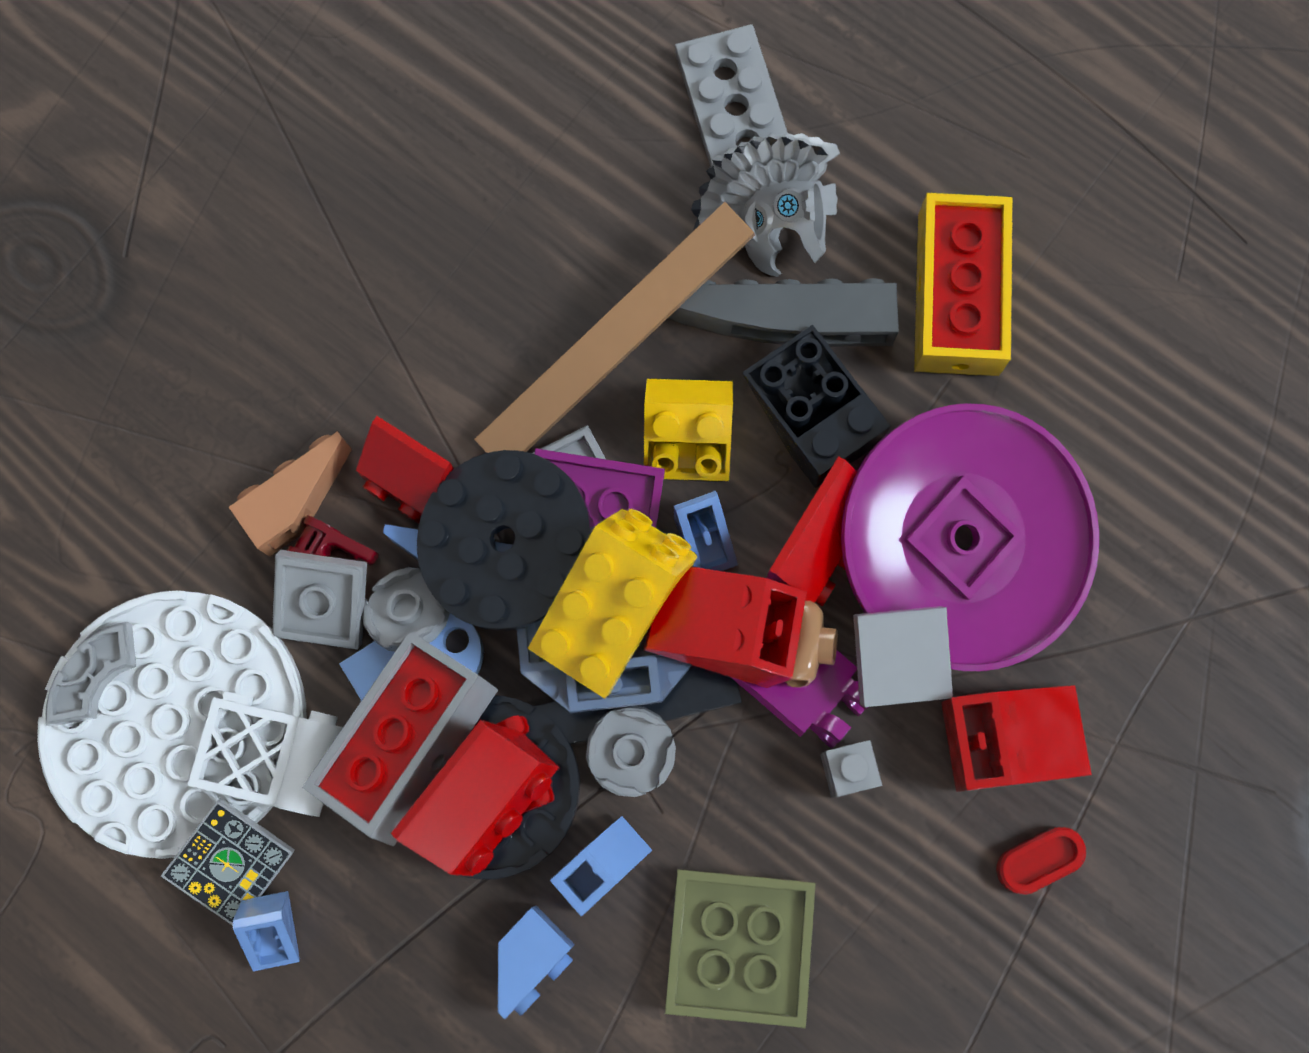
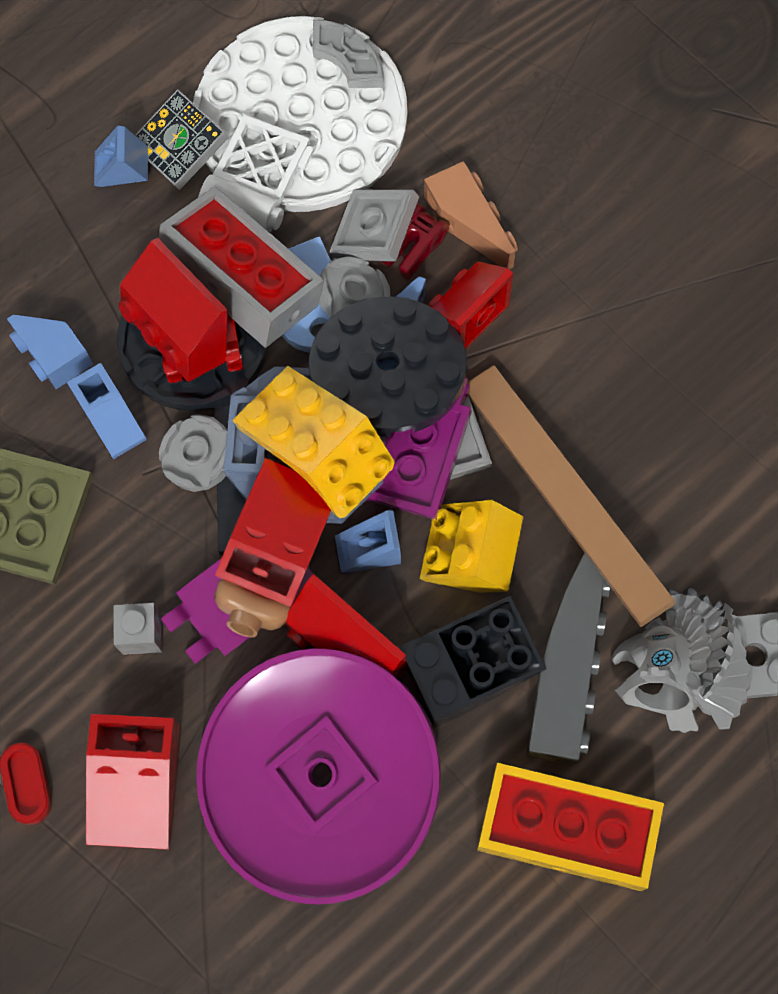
camera: 100 degrees right, 5 degrees down
(903, 656) = (220, 686): light grey tile -> none

